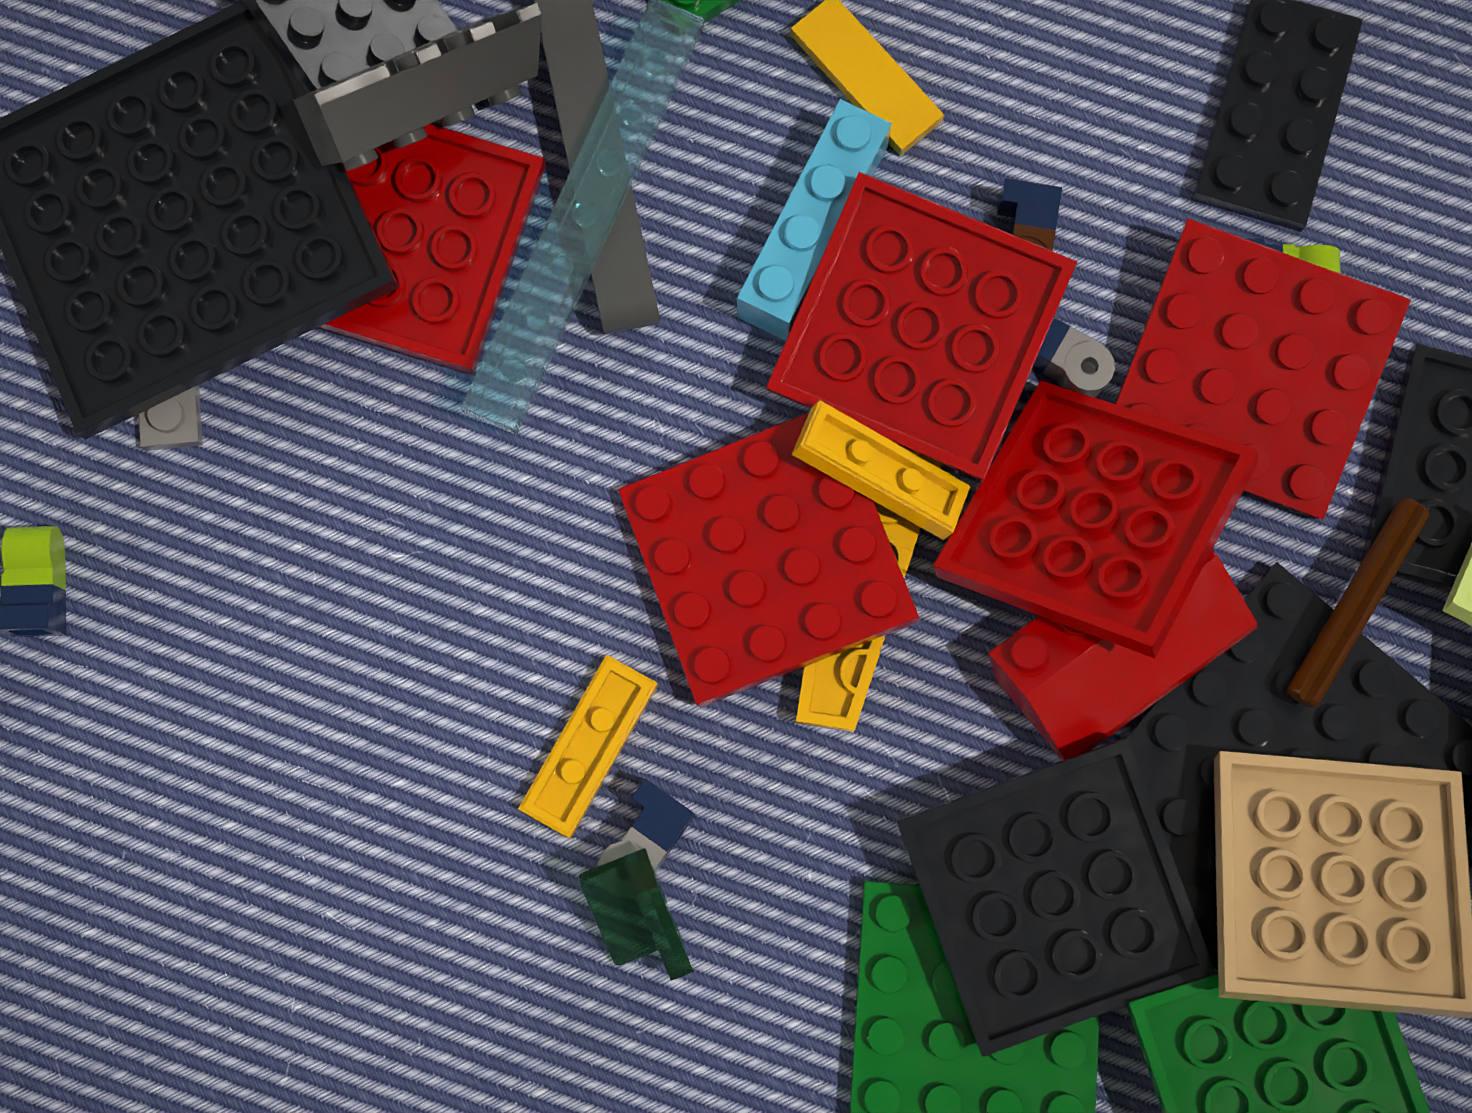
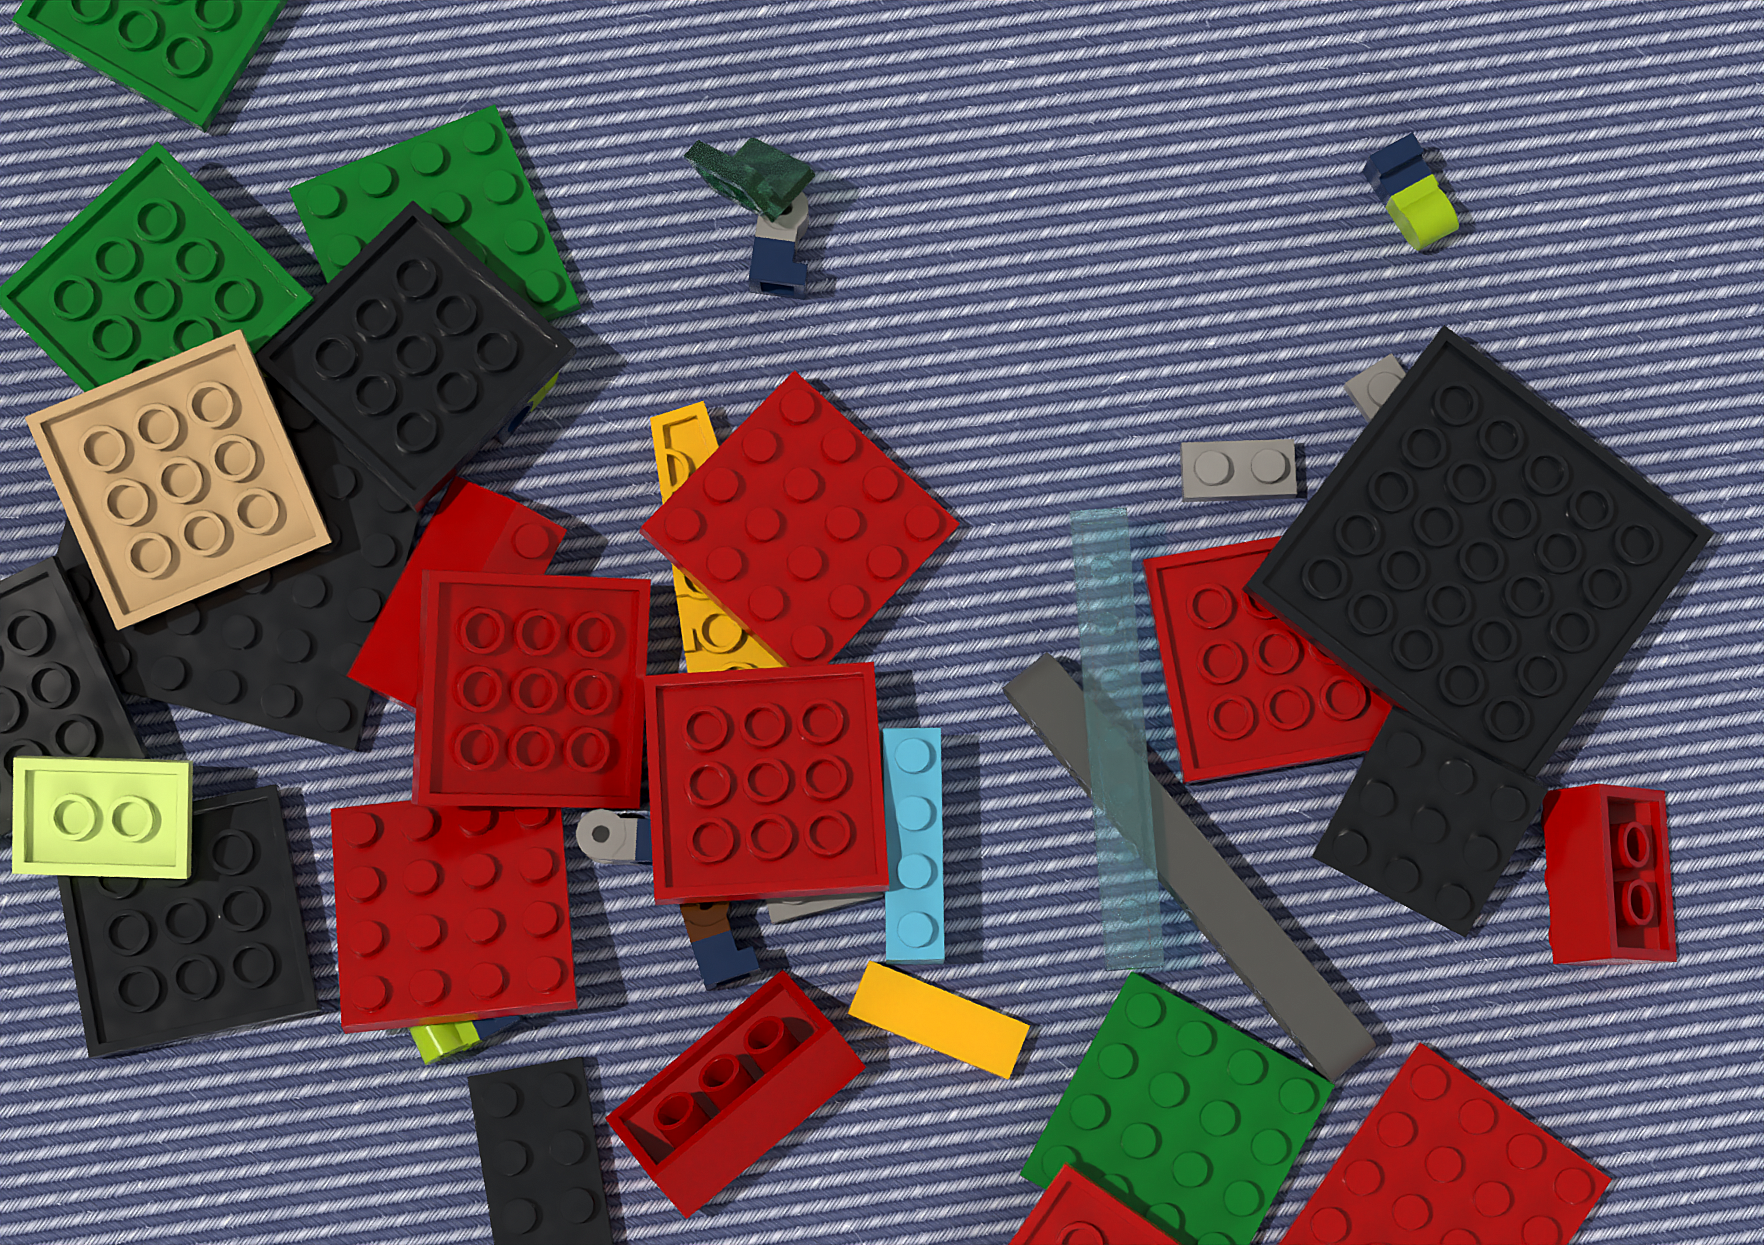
camera: 150 degrees right, 0 degrees up
(340, 413) = (1238, 470): none -> light grey plate
(421, 87) = (1323, 771): dark grey wedge -> none
(588, 746) = (869, 299): yellow tile -> none
(881, 470) = (736, 639): yellow tile -> none
(1078, 95) = (735, 1093): none -> red slope
(1358, 602) = (267, 739): reddish brown axle -> none

